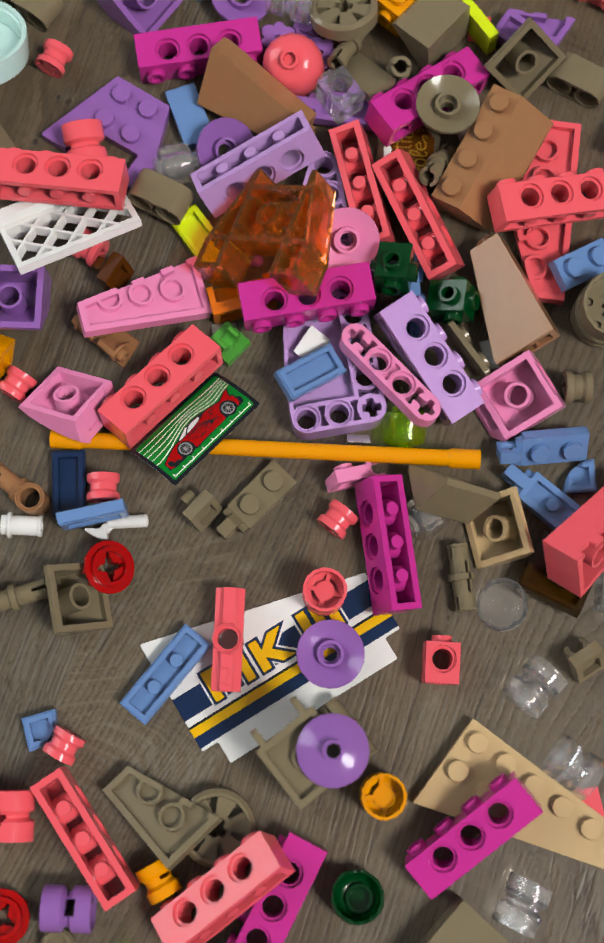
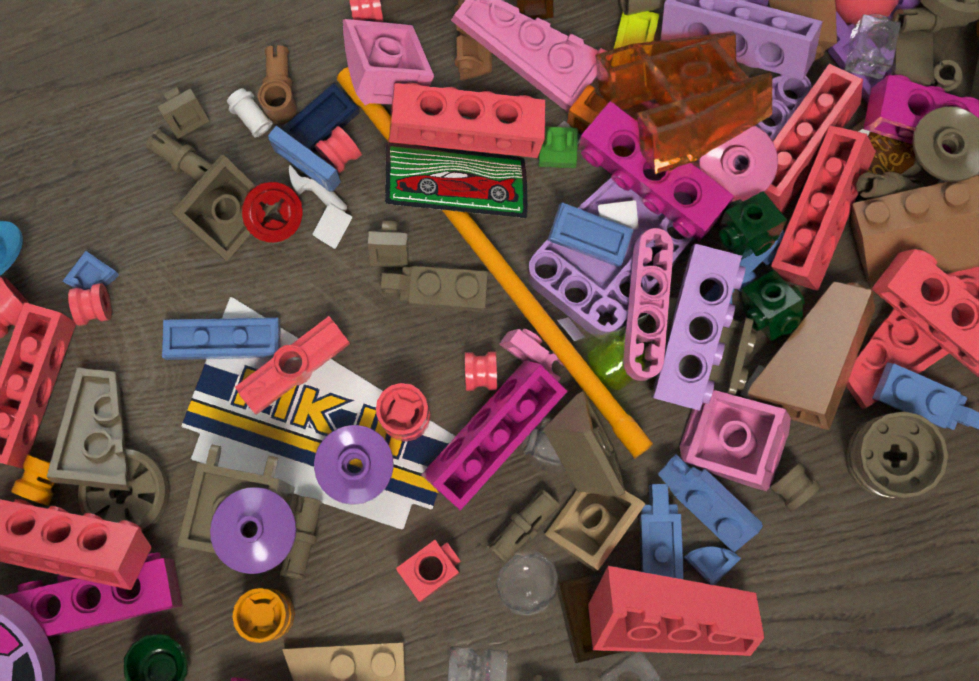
camera: 55 degrees right, 0 degrees up
(151, 535) = (332, 225): none -> white sticker

